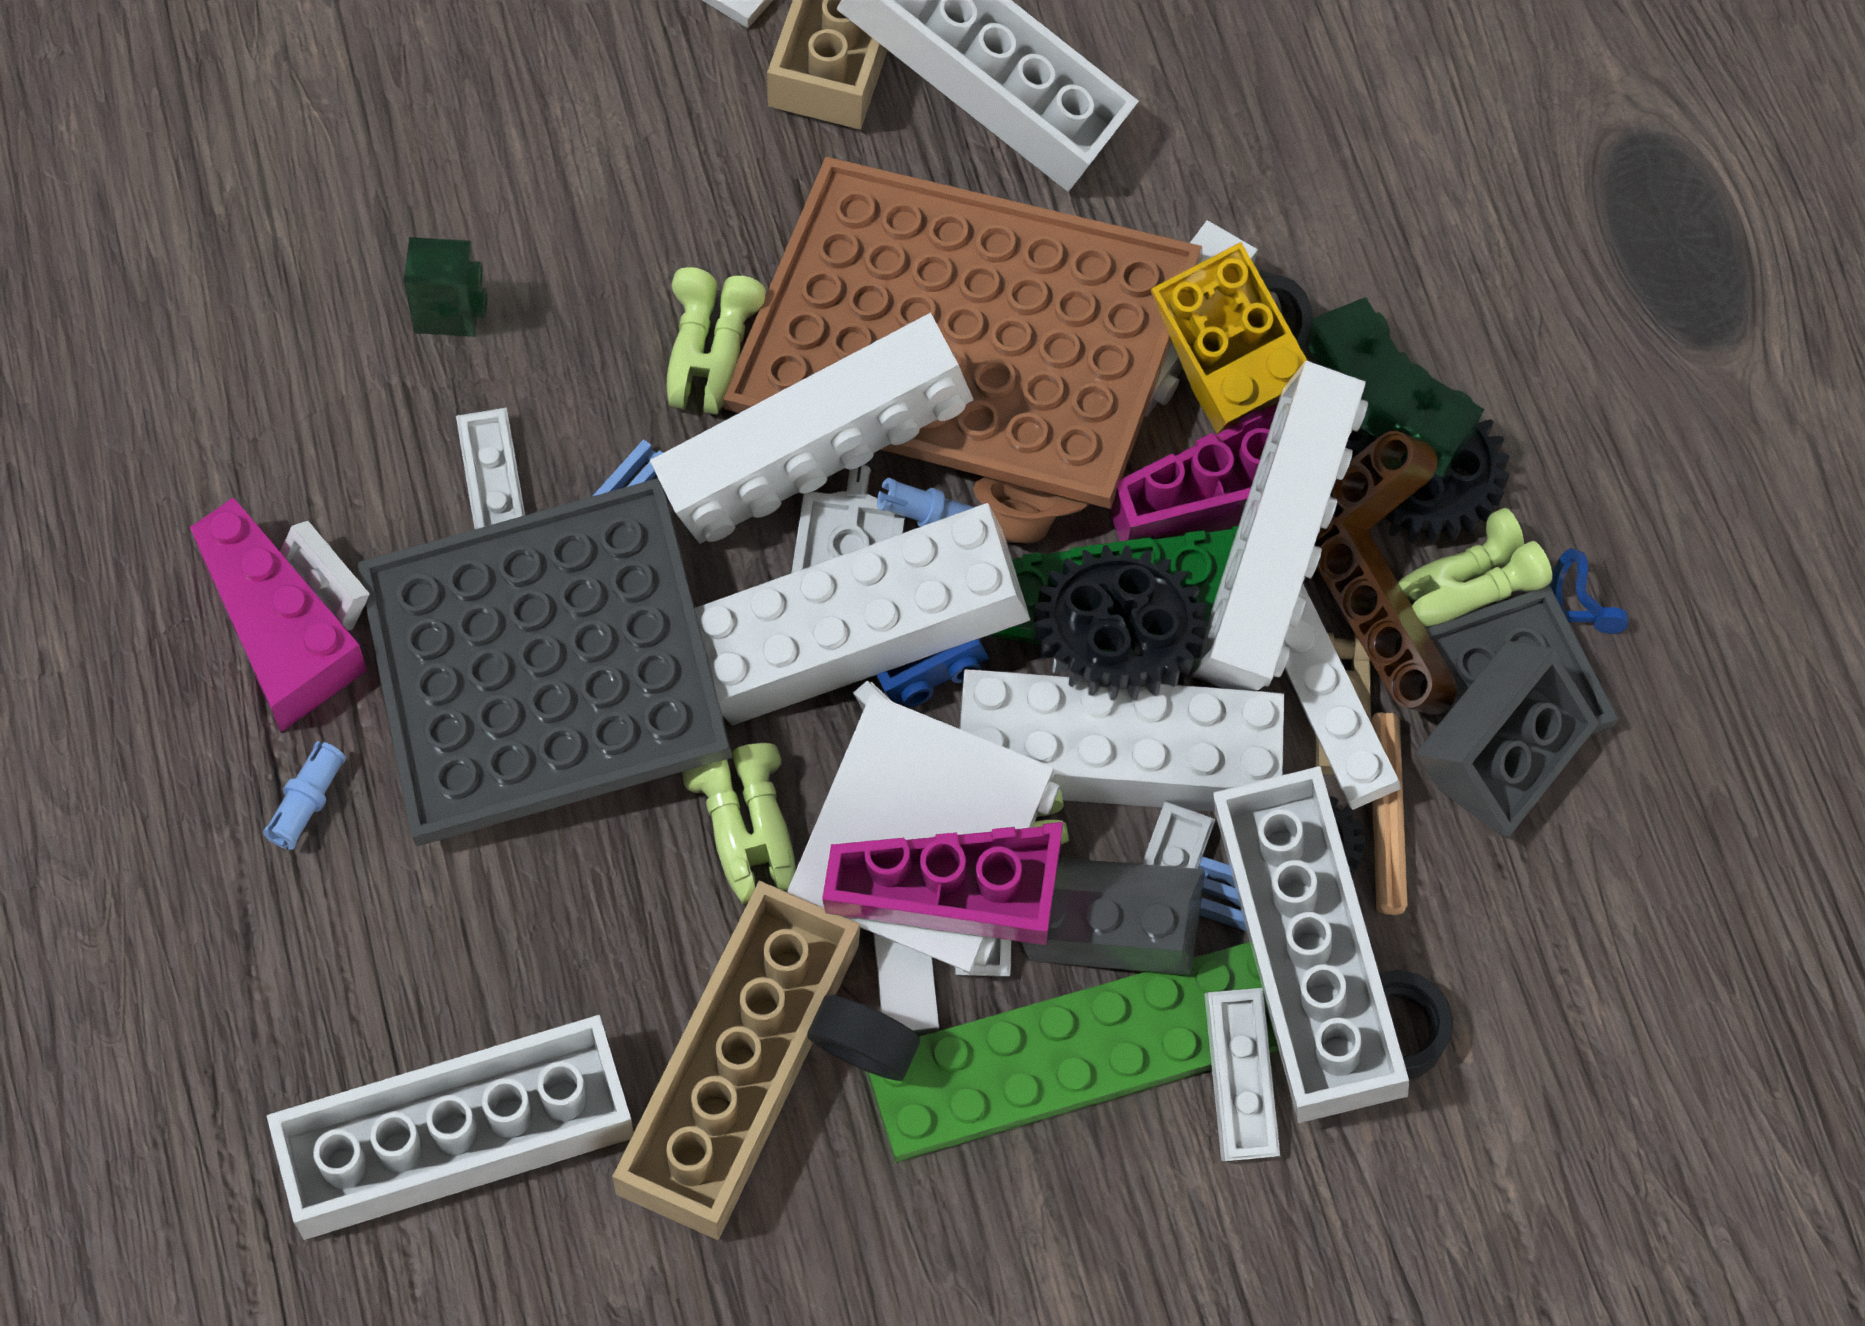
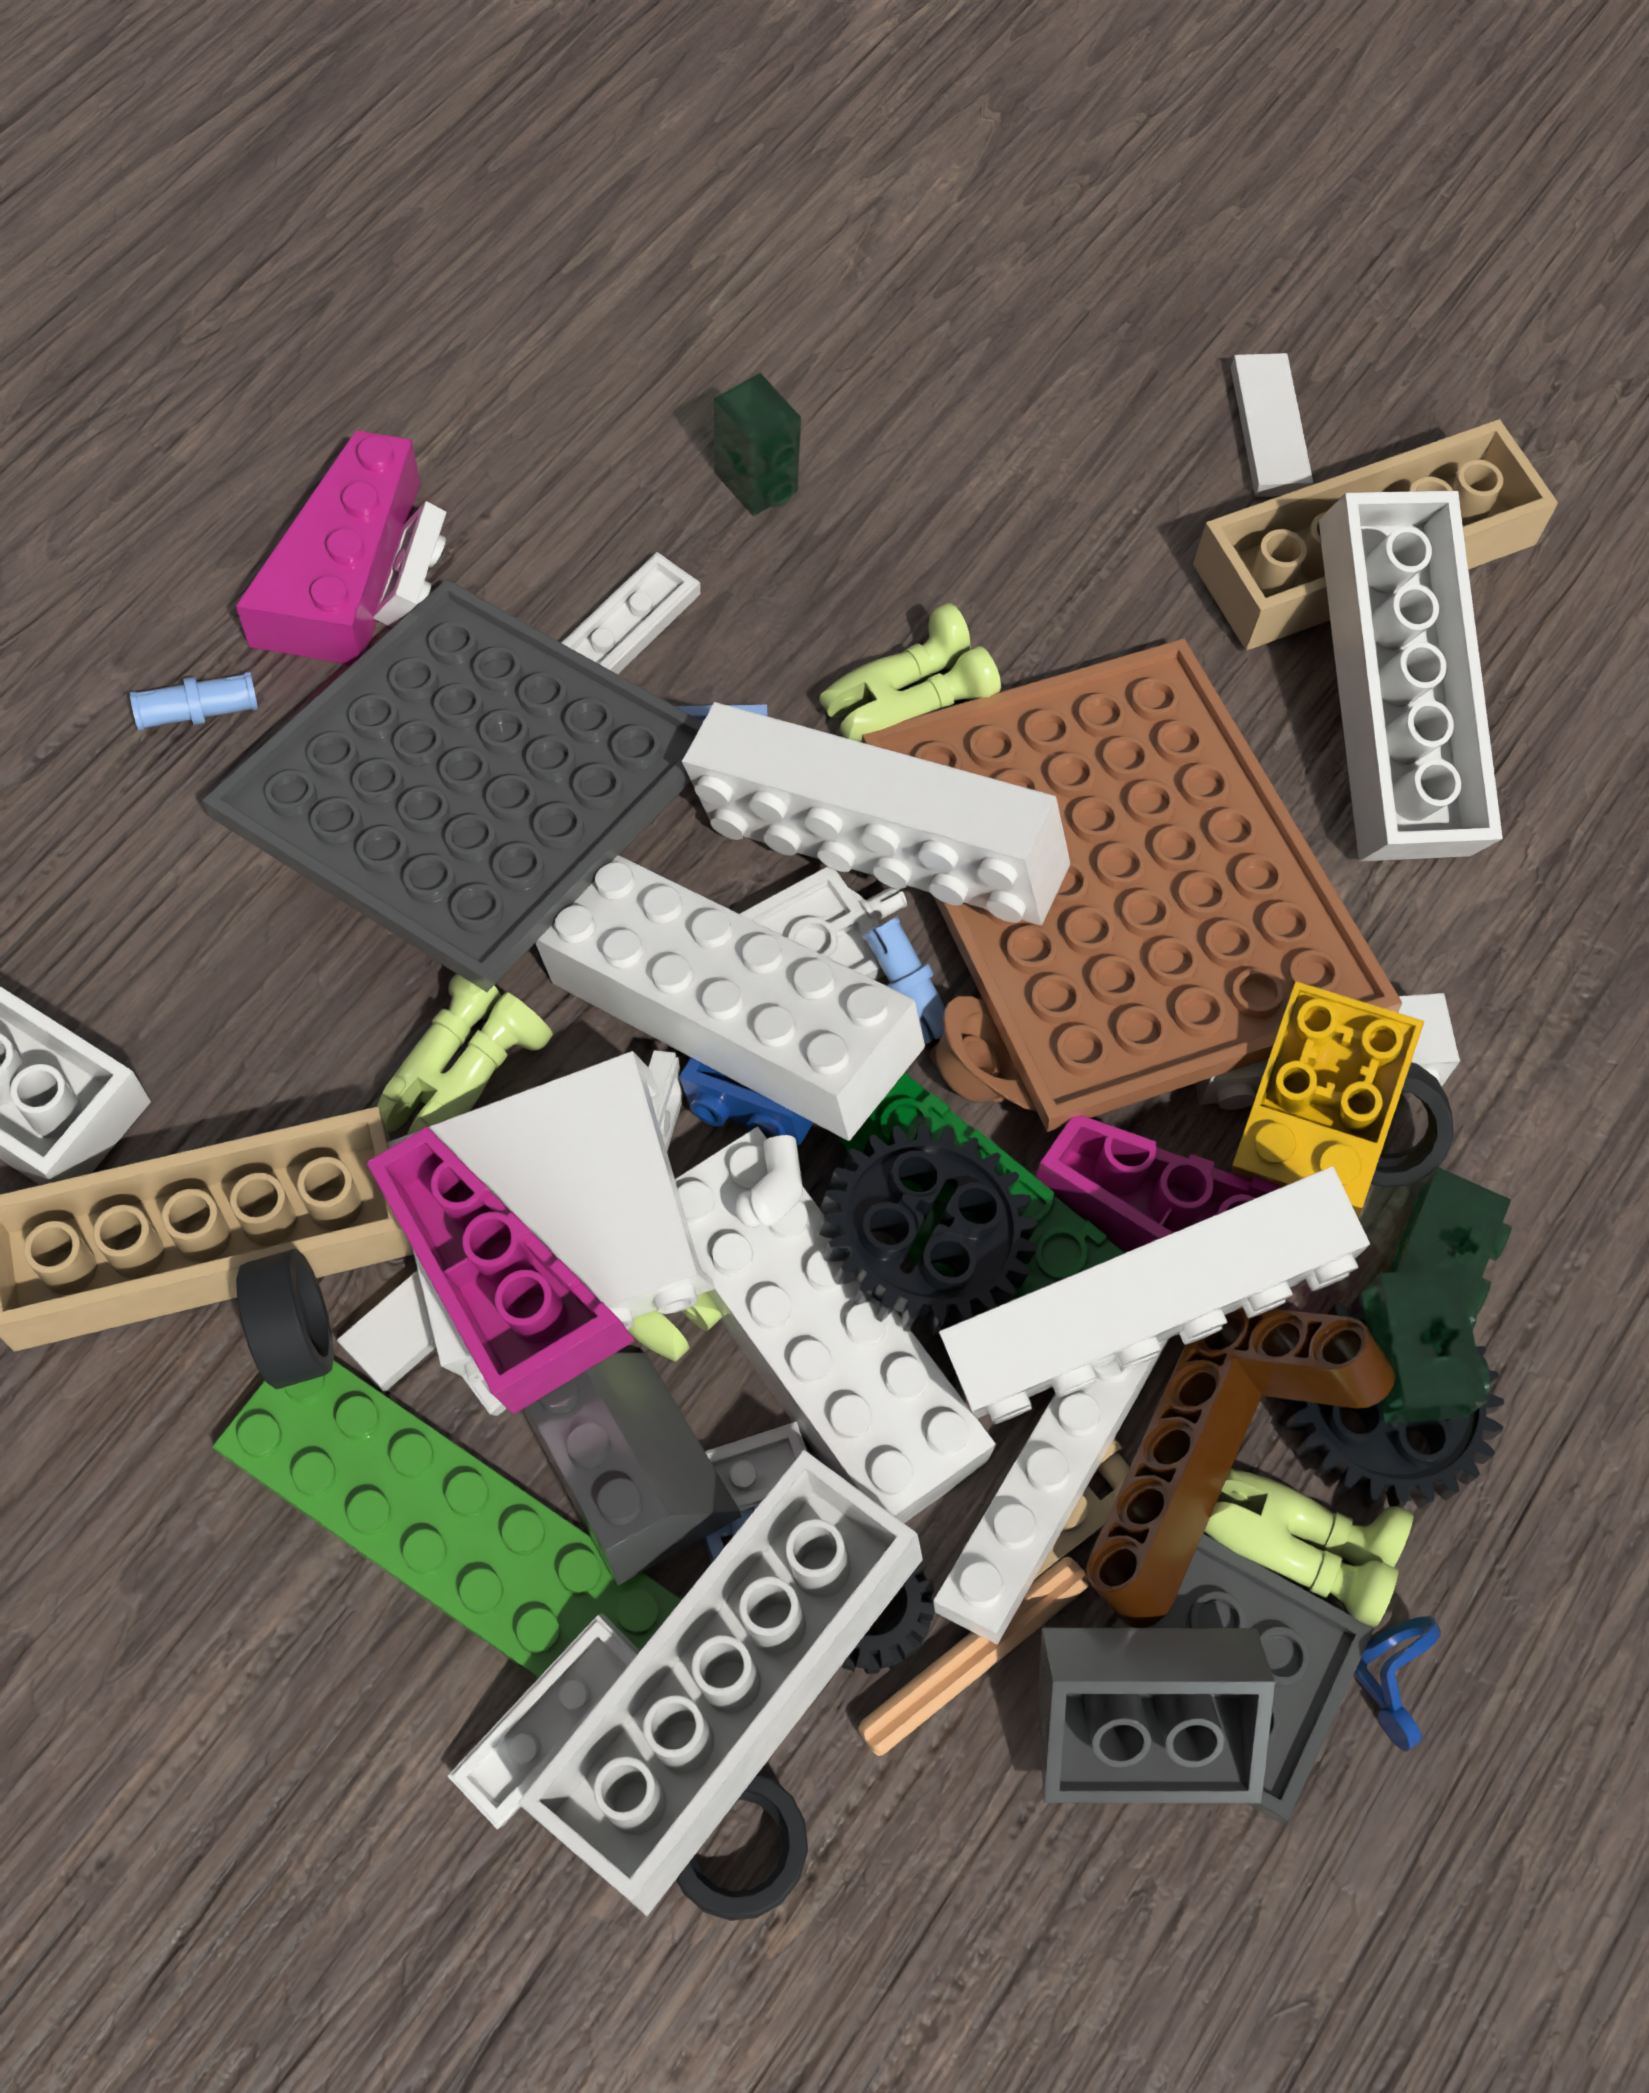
camera: 50 degrees right, 0 degrees up
(1027, 684) = (777, 1190): none -> white arm

